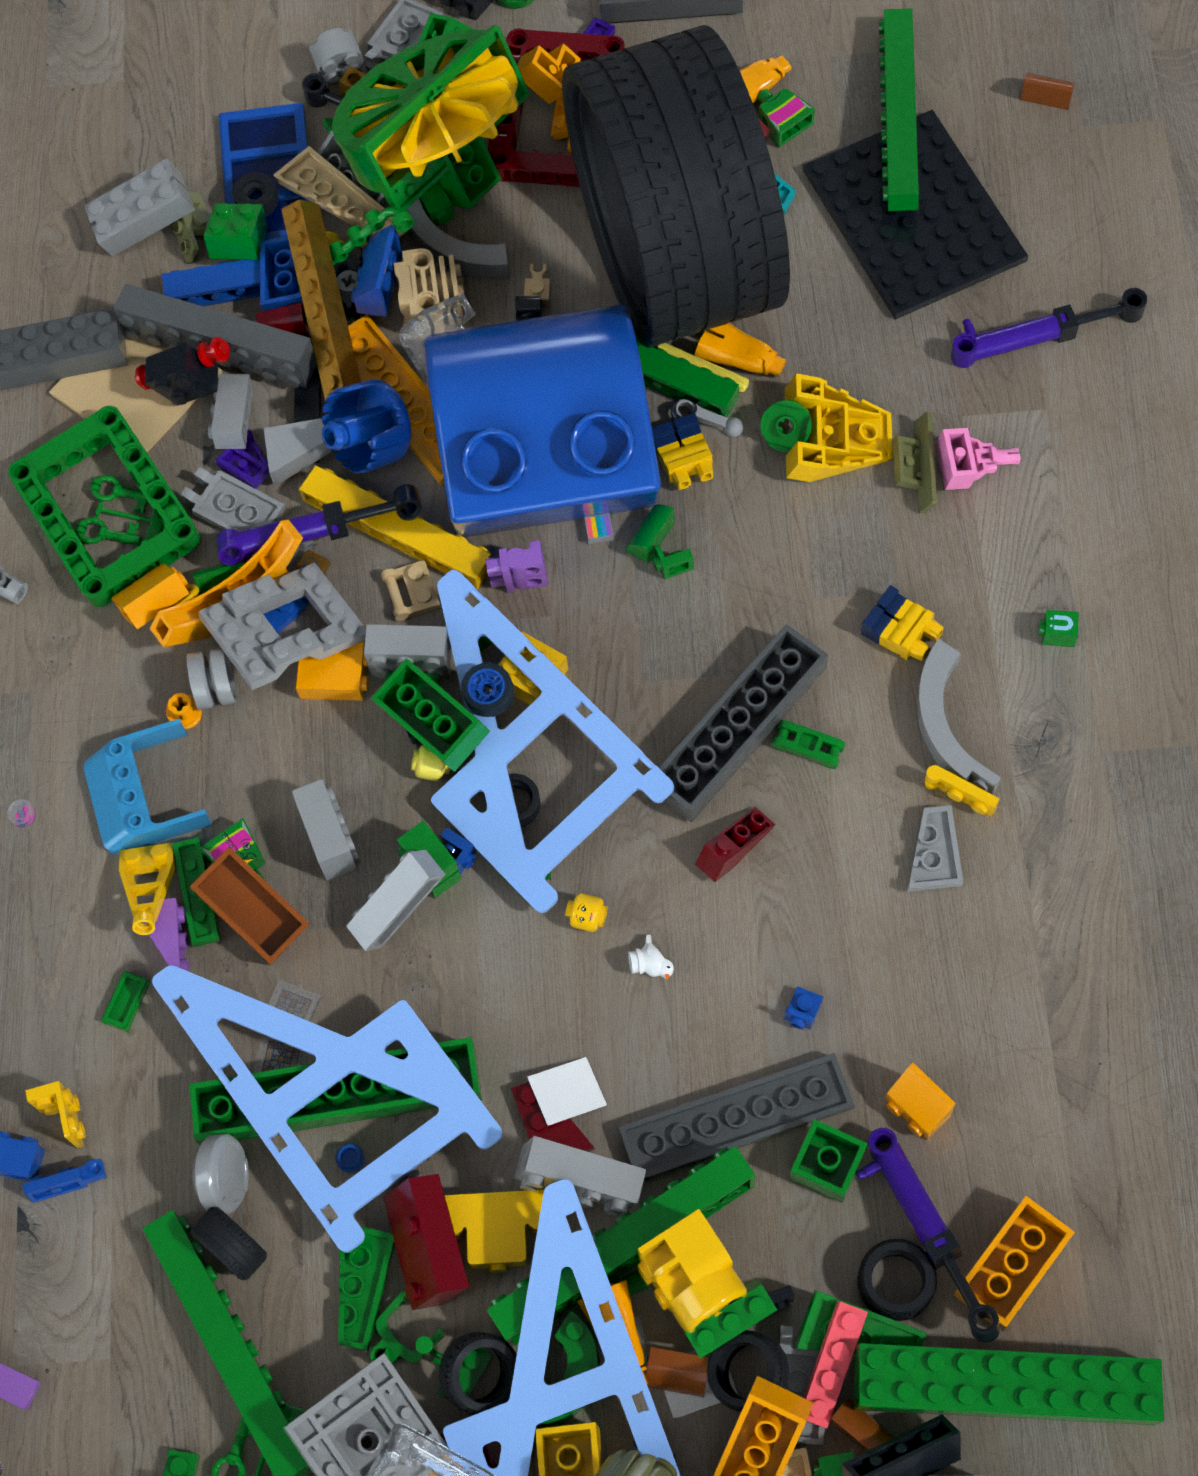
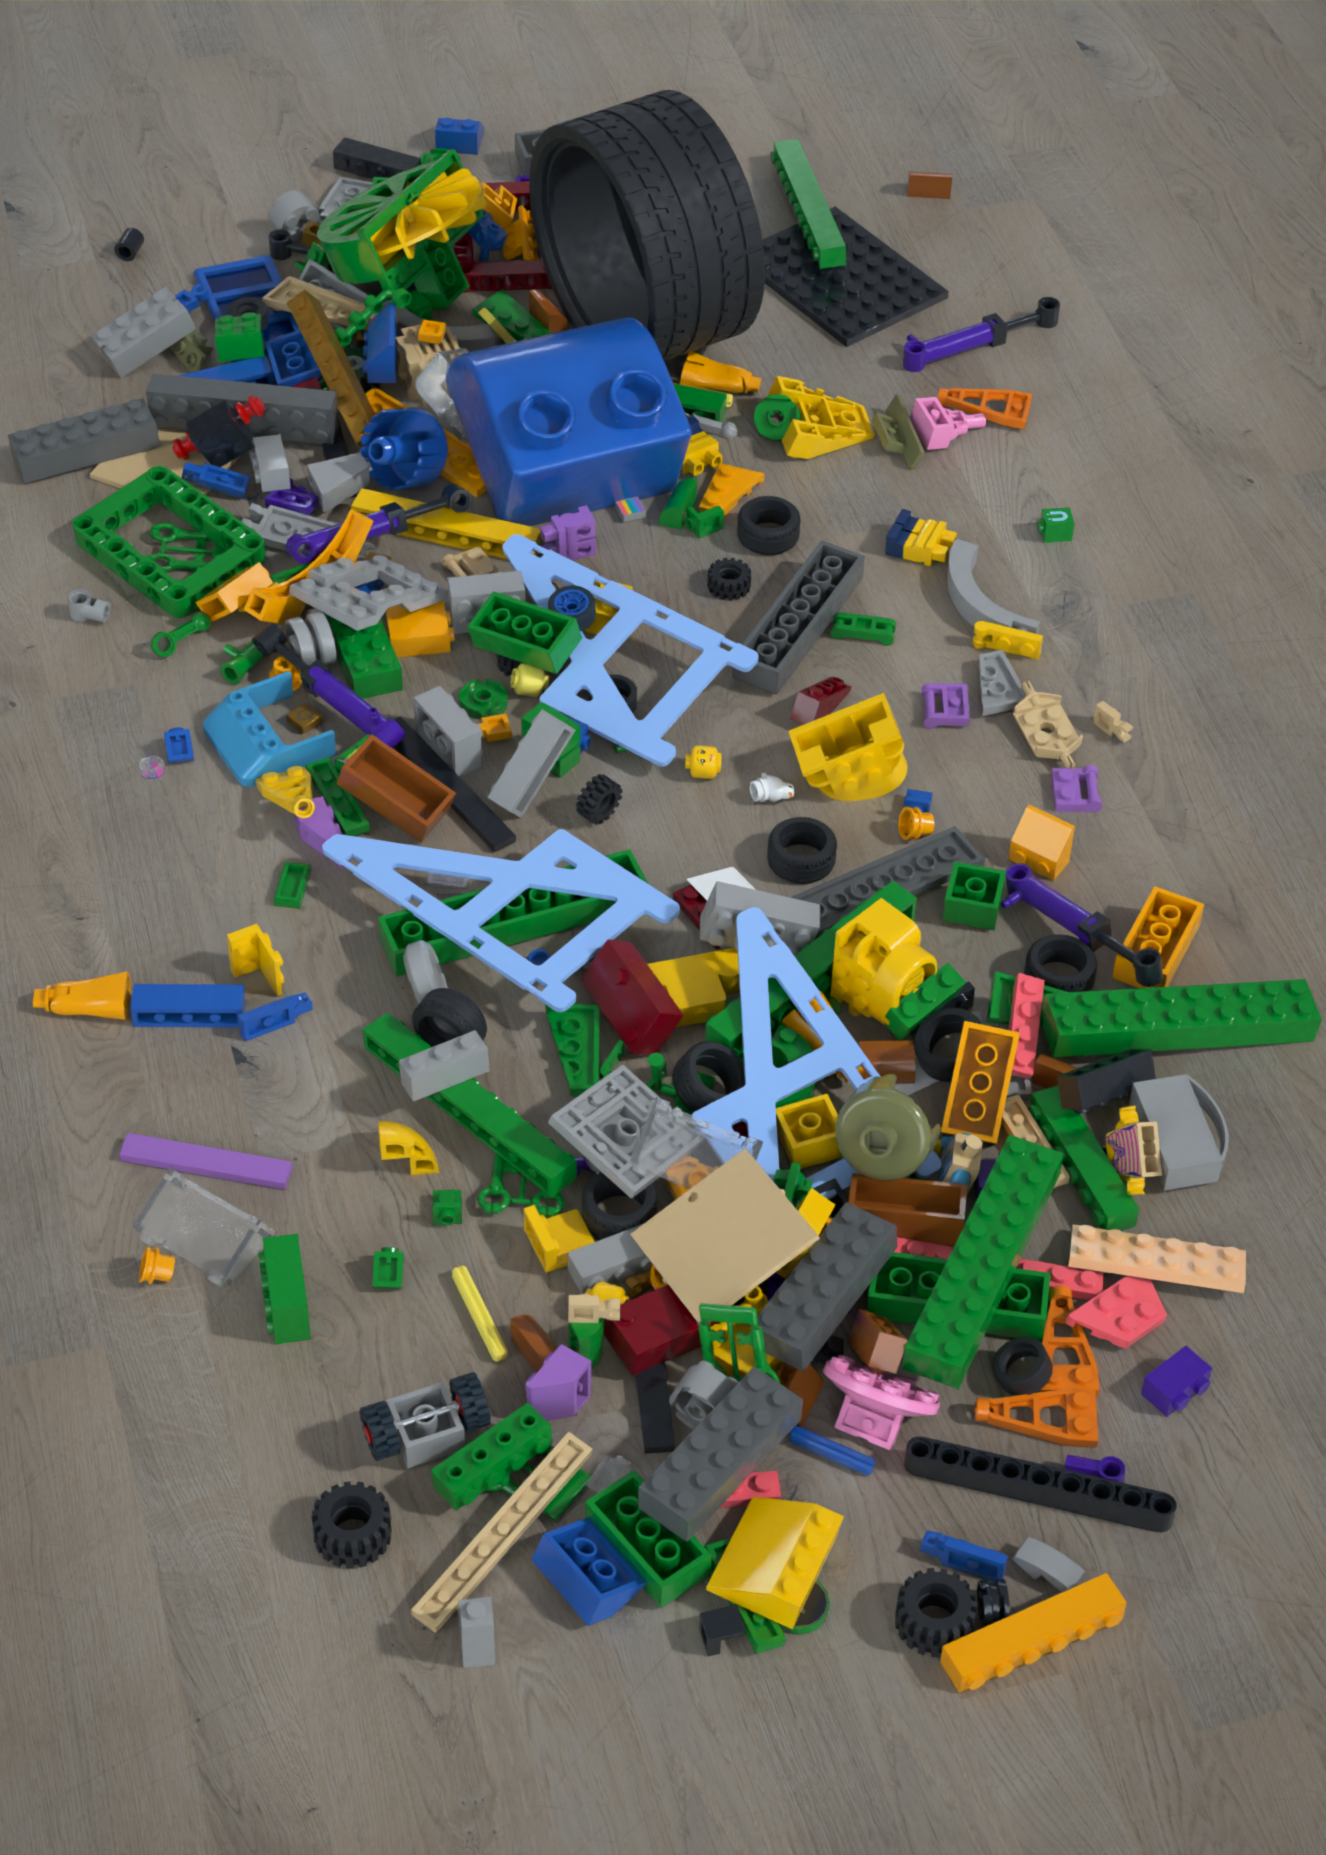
camera: 20 degrees left, 20 degrees down
(51, 792) = (178, 745): none -> blue bracket
(112, 621) = (200, 622): none -> green piece
(146, 681) = (242, 661): none -> green piece
(150, 1388) = (403, 1142): none -> yellow brick
(159, 68) = (129, 244): none -> black brick
(174, 424) = (217, 479): none -> blue hinge
(189, 772) = (304, 718): none -> pearl gold tile
(198, 160) = (191, 299): none -> blue plate
(203, 1311) = (444, 1065): none -> light grey brick
(211, 738) = (320, 682): none -> dark purple piece
(270, 713) = (366, 659): none -> green brick
(314, 890) = (466, 802): none -> black tile
(379, 822) = (495, 727): none -> light orange plate
(380, 790) = (478, 708): none -> green tile
(430, 265) = (432, 332): none -> light orange plate
(460, 951) = (599, 799): none -> black tyre
(513, 249) = (496, 326): none -> light yellow tile
(534, 111) = (488, 235): none -> blue brick
(538, 231) = (511, 316): none -> green wing
(577, 230) = (546, 312): none -> dark orange brick
(655, 1029) = (802, 868): none -> black tyre
(679, 664) = (729, 588): none -> black tyre
(710, 514) = (729, 486): none -> light orange wing
(739, 557) = (768, 540): none -> black tyre
(741, 940) = (852, 751): none -> yellow brick
(793, 1041) = (914, 823): none -> light orange piece
(878, 875) = (954, 704): none -> medium lavender plate
(974, 1014) = (1067, 789): none -> medium lavender plate
(977, 904) = (1042, 711): none -> tan plate
(1045, 926) = (1109, 721): none -> tan plate
(1060, 445) = (1014, 415): none -> orange plate

